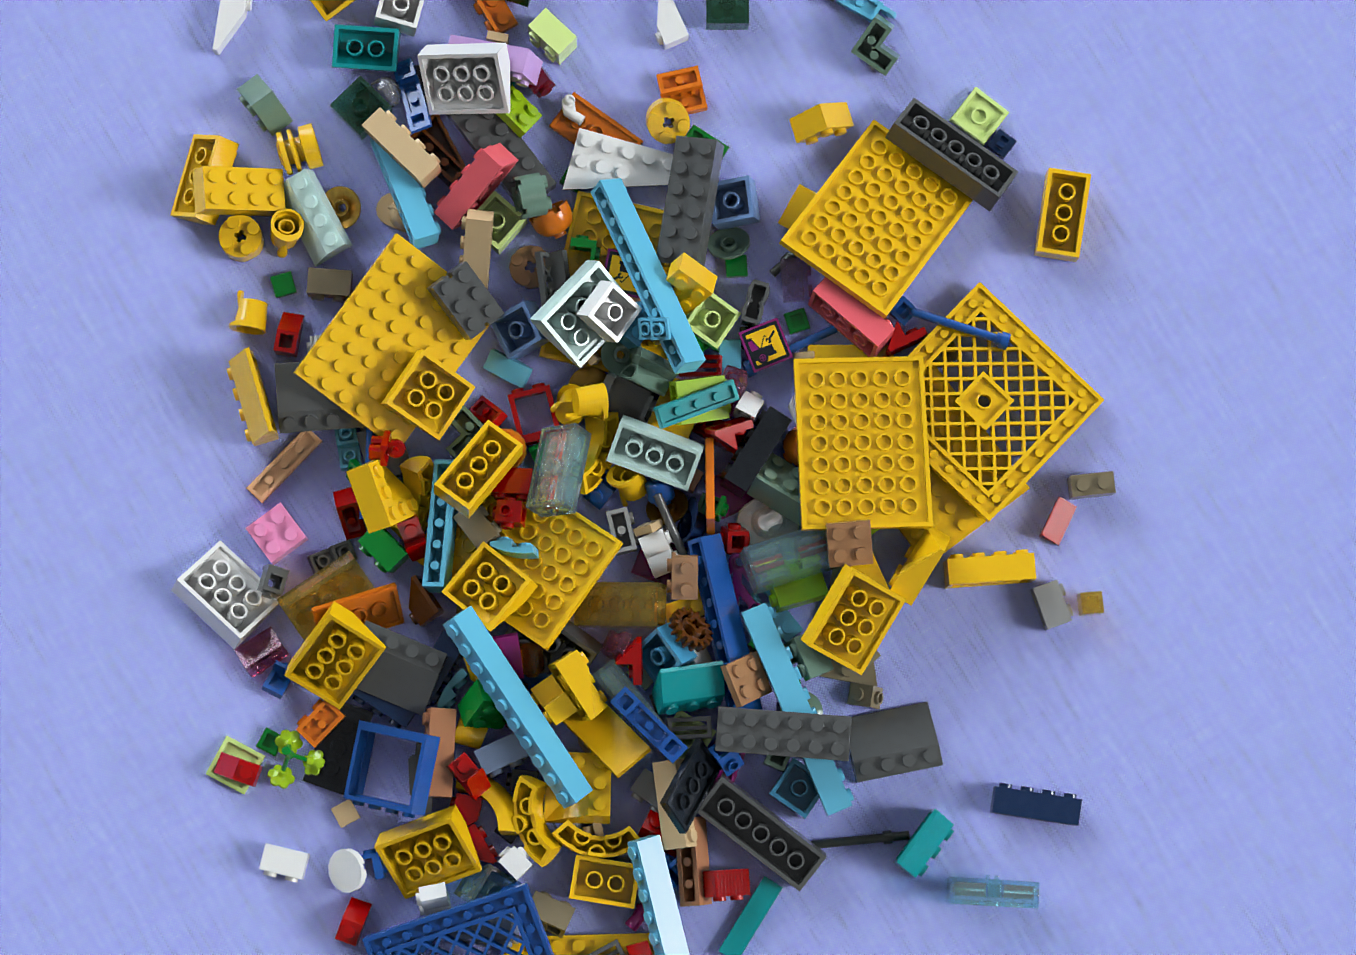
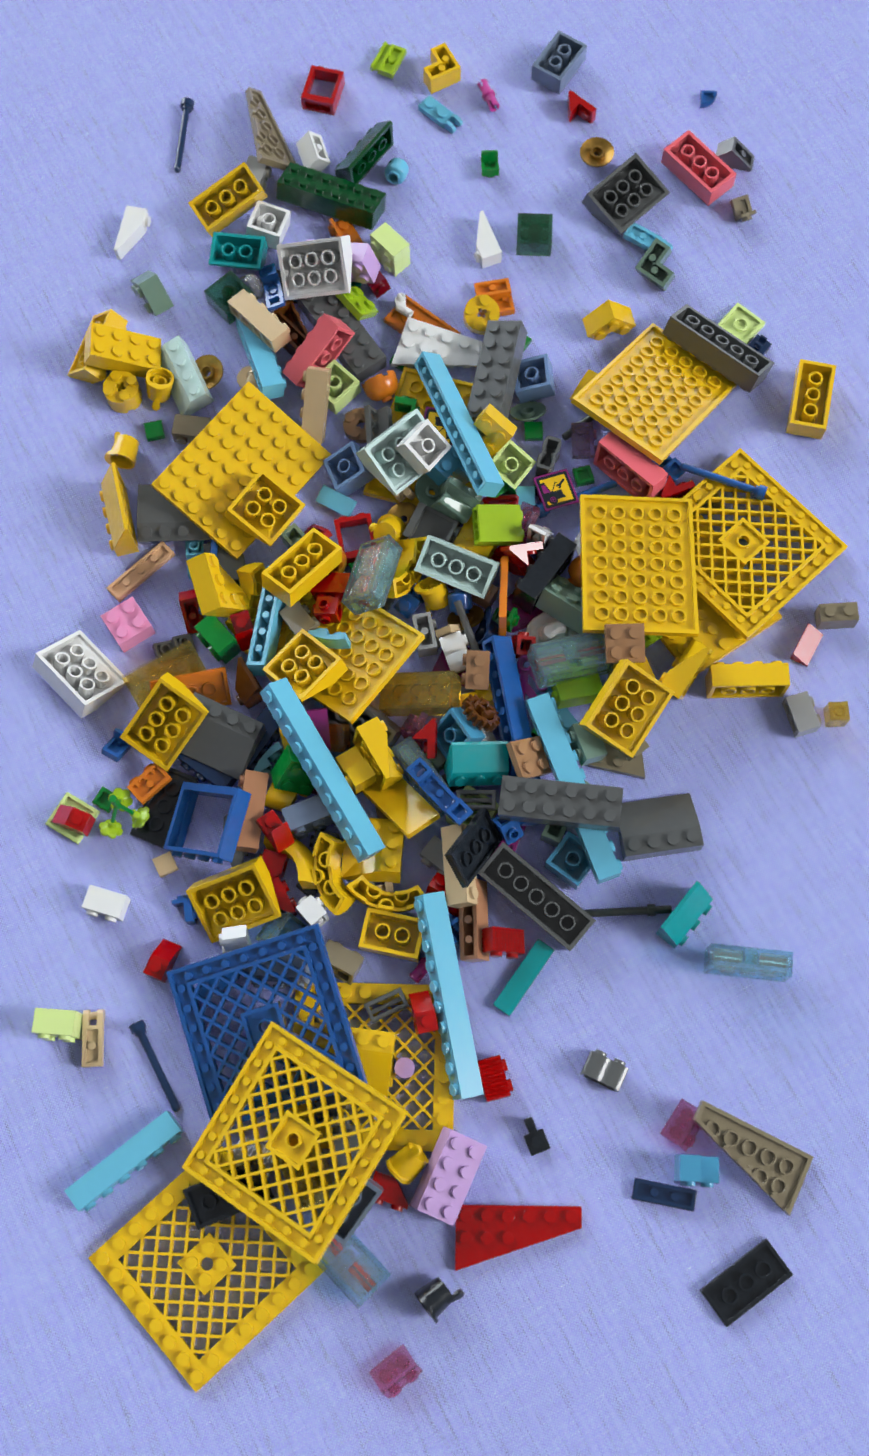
camera: 15 degrees right, 10 degrees down
(261, 652) = (103, 722): clear pink bracket -> none
(279, 578) = (122, 657): dark grey brick -> none
(289, 334) = (152, 466): red slope -> none
(299, 149) = (176, 324): yellow wheel -> none
(347, 870) = (160, 913): white tile -> none
(382, 448) = (225, 550): red hips -> none
(465, 300) = (302, 437): dark grey piece -> none
(530, 195) = (363, 358): sand green brick -> none
(589, 401) = (402, 520): yellow hat -> none
(654, 328) = (461, 458): medium azure slope -> none
(696, 403) = (494, 524): teal tile -> none
(865, 695) = (634, 784): dark tan bracket -> none
(1035, 805) = (787, 887): dark blue brick -> none

